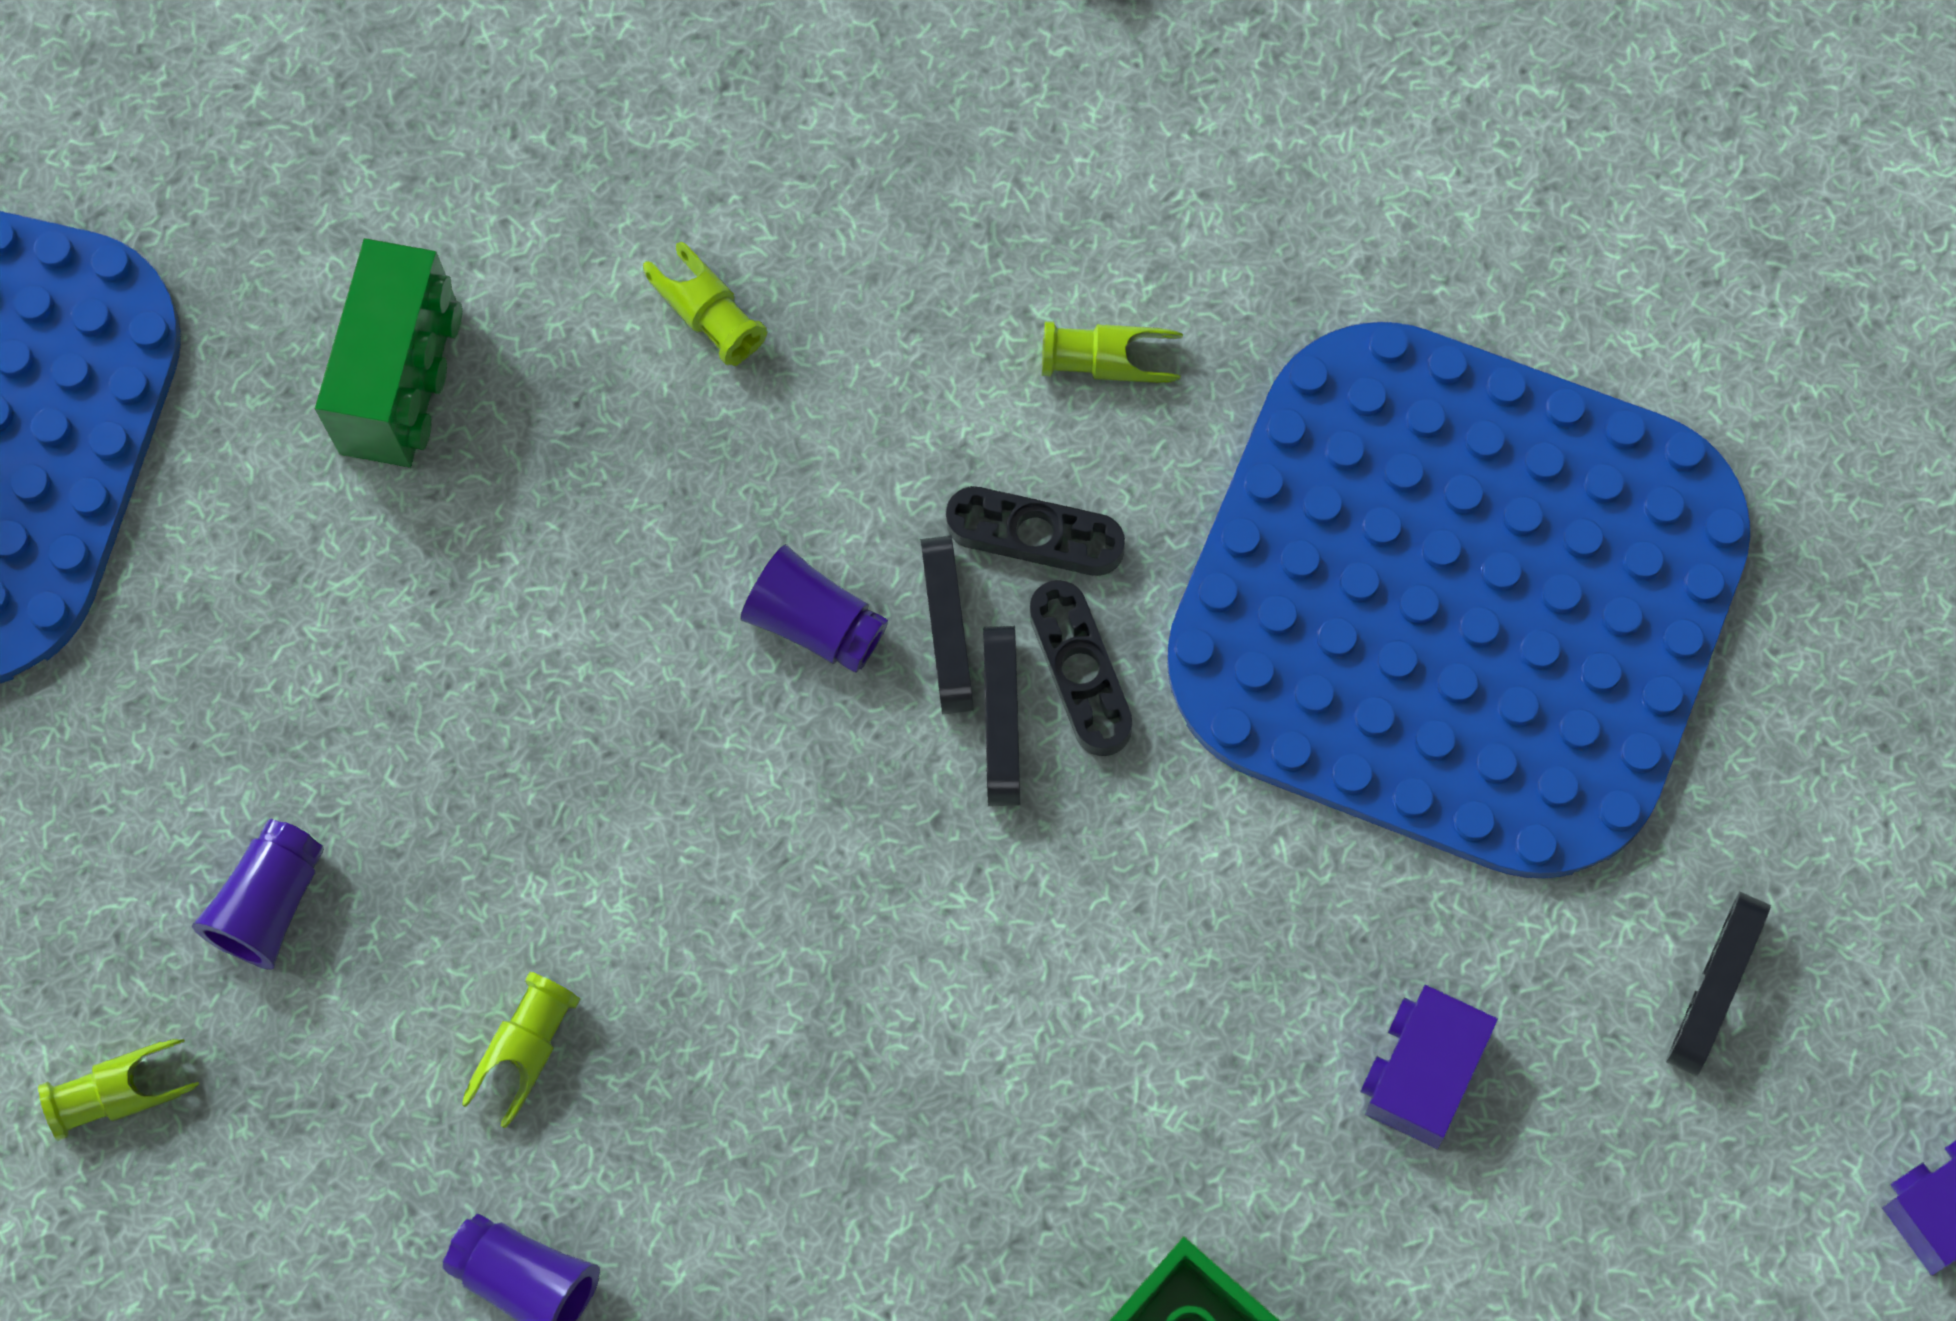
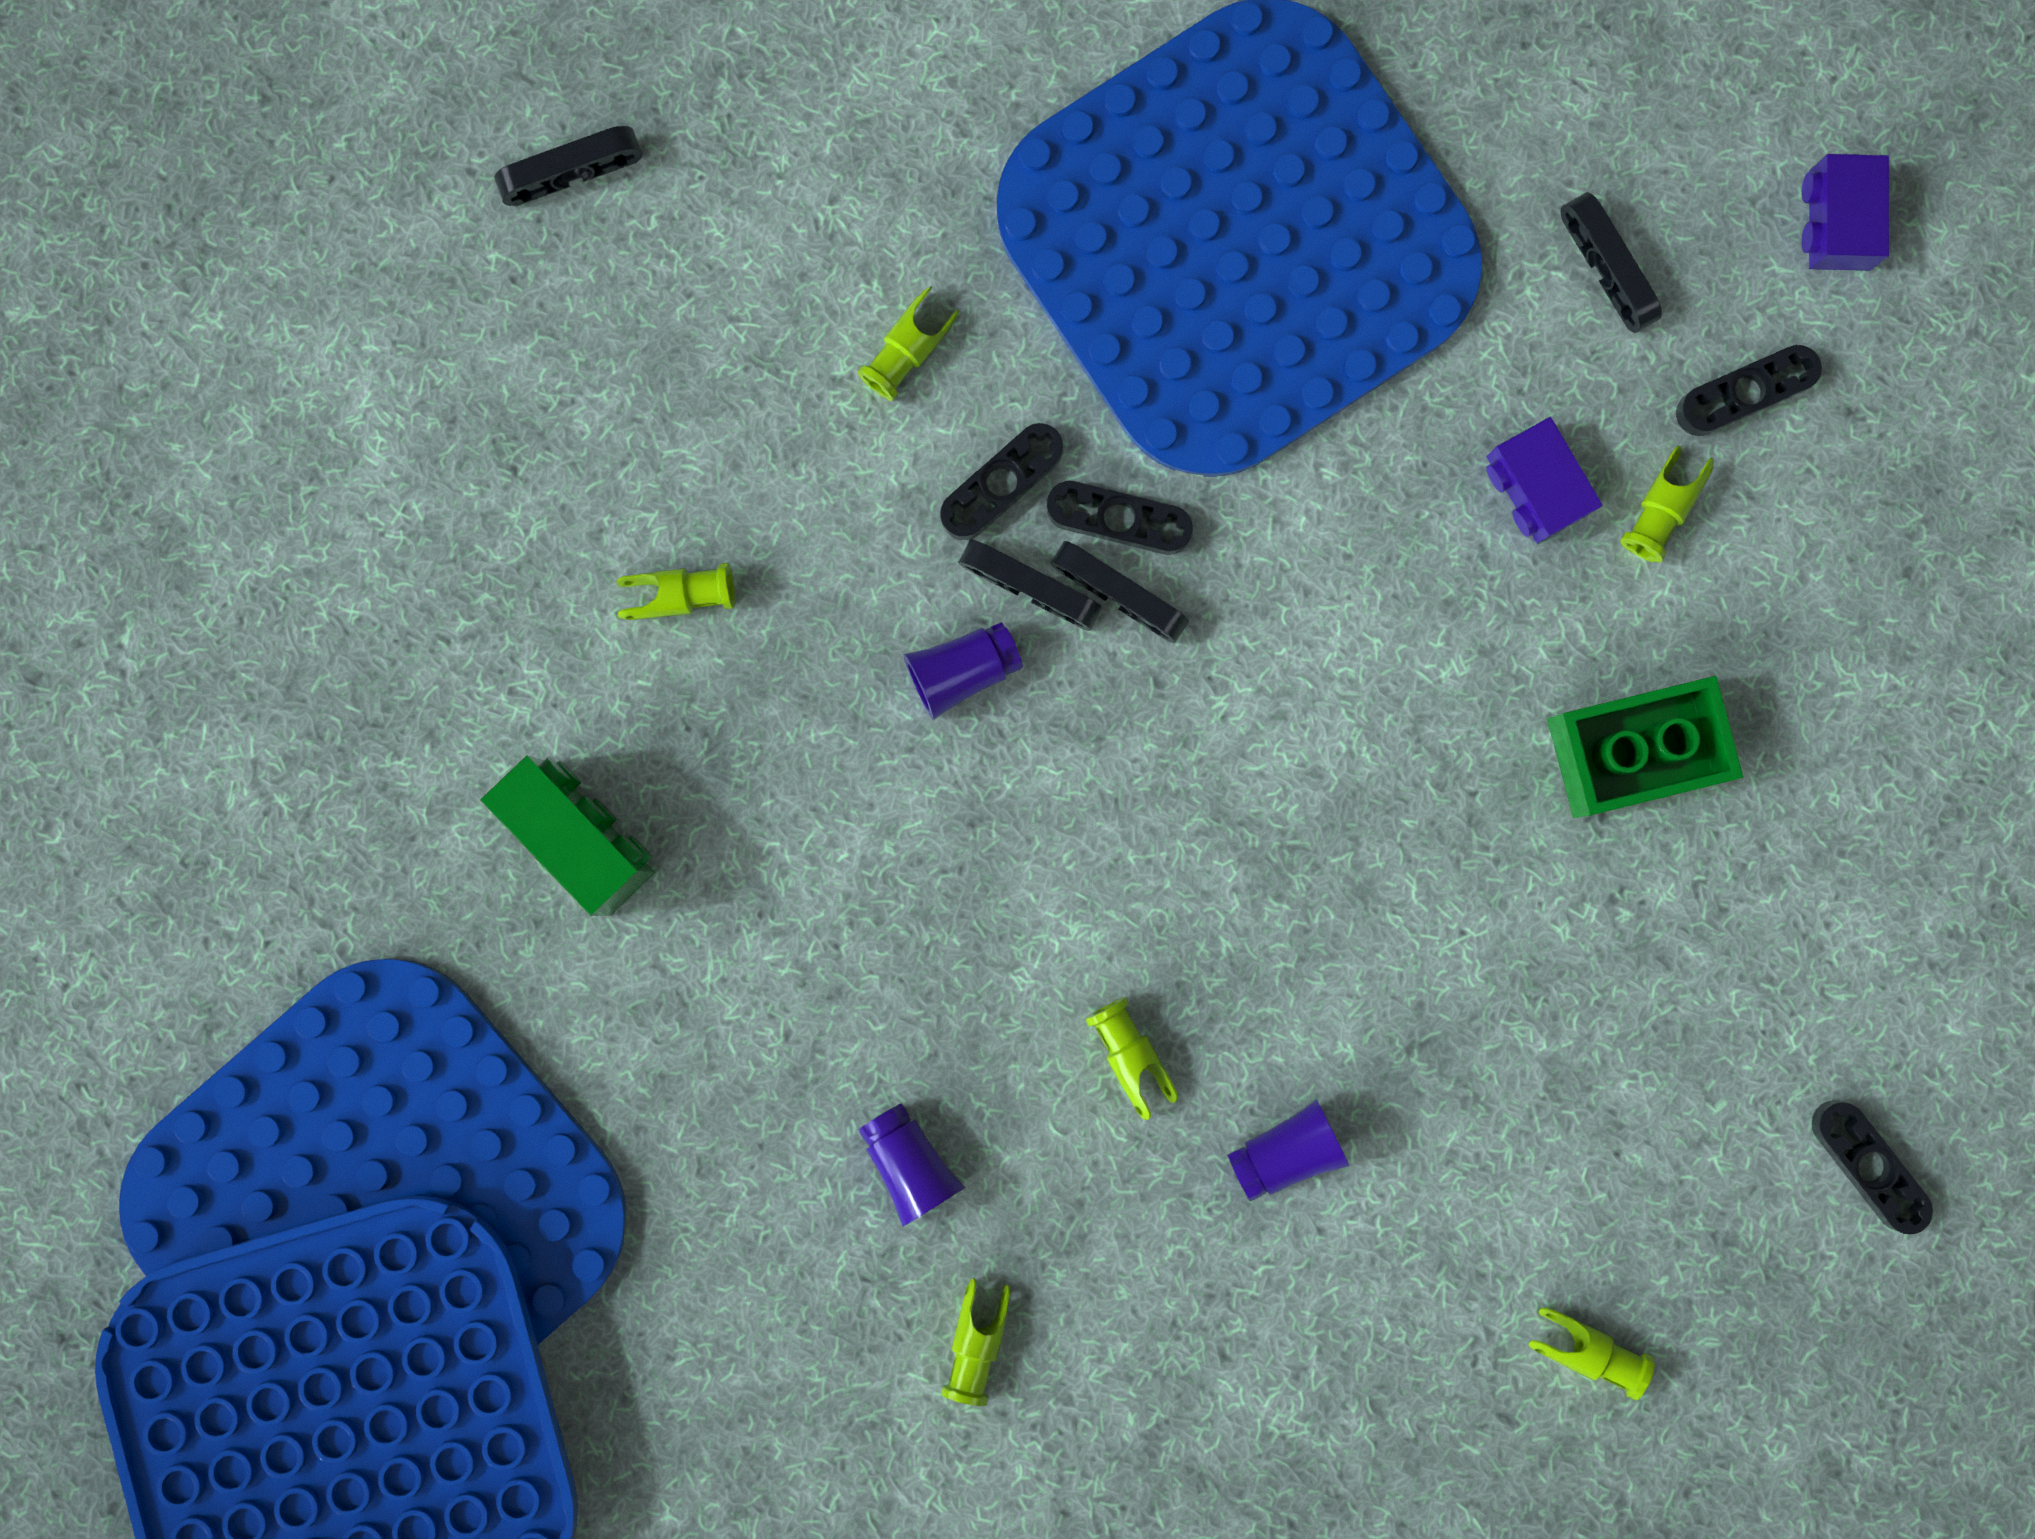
camera: 60 degrees left, 15 degrees up
(1502, 1219) = (1663, 510): none -> lime piece
(1733, 1266) = (1775, 363): none -> black beam

